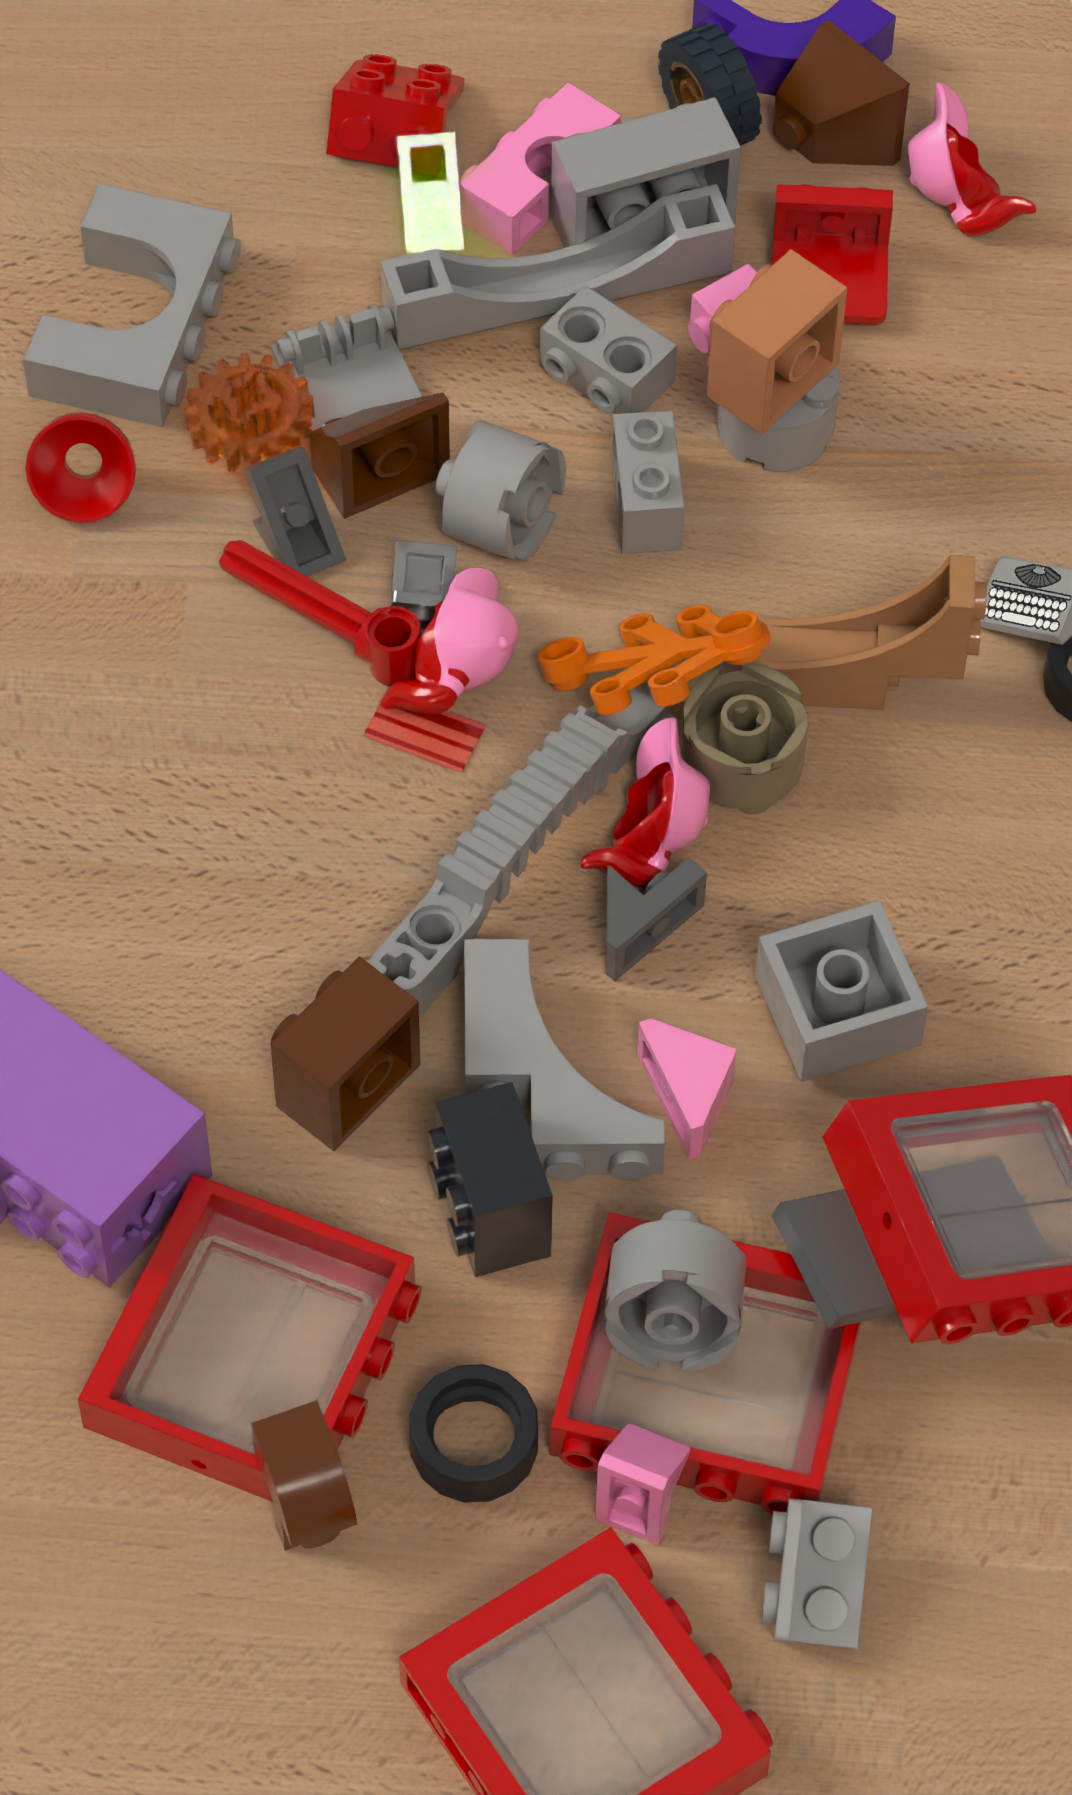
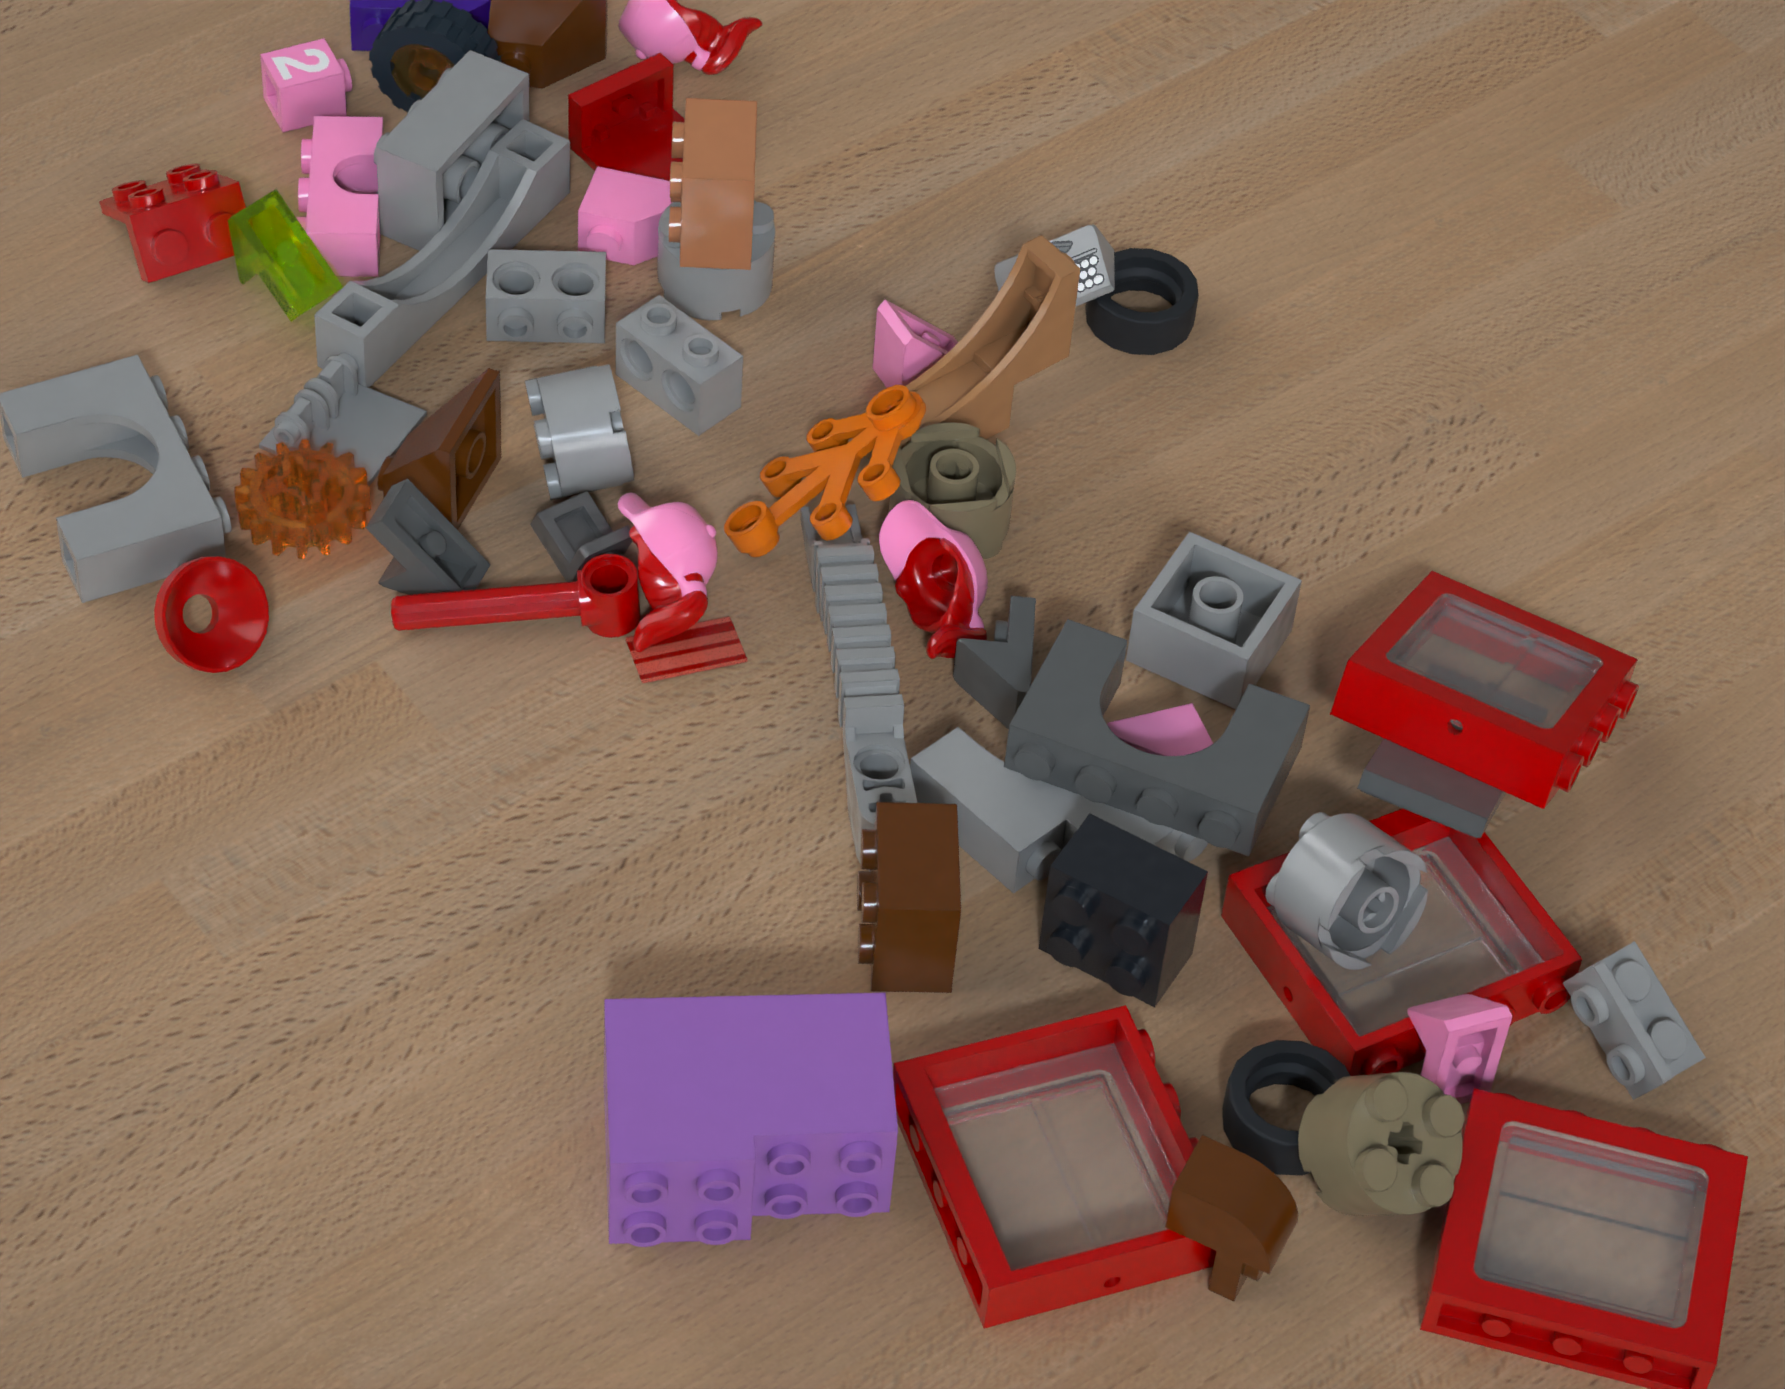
camera: 45 degrees left, 10 degrees down
(483, 1554) = (1382, 1144): none -> dark tan brick
(606, 48) = (304, 84): none -> bright pink brick
(654, 1138) = (1209, 794): none -> dark grey arch
(851, 579) = (906, 345): none -> bright pink slope

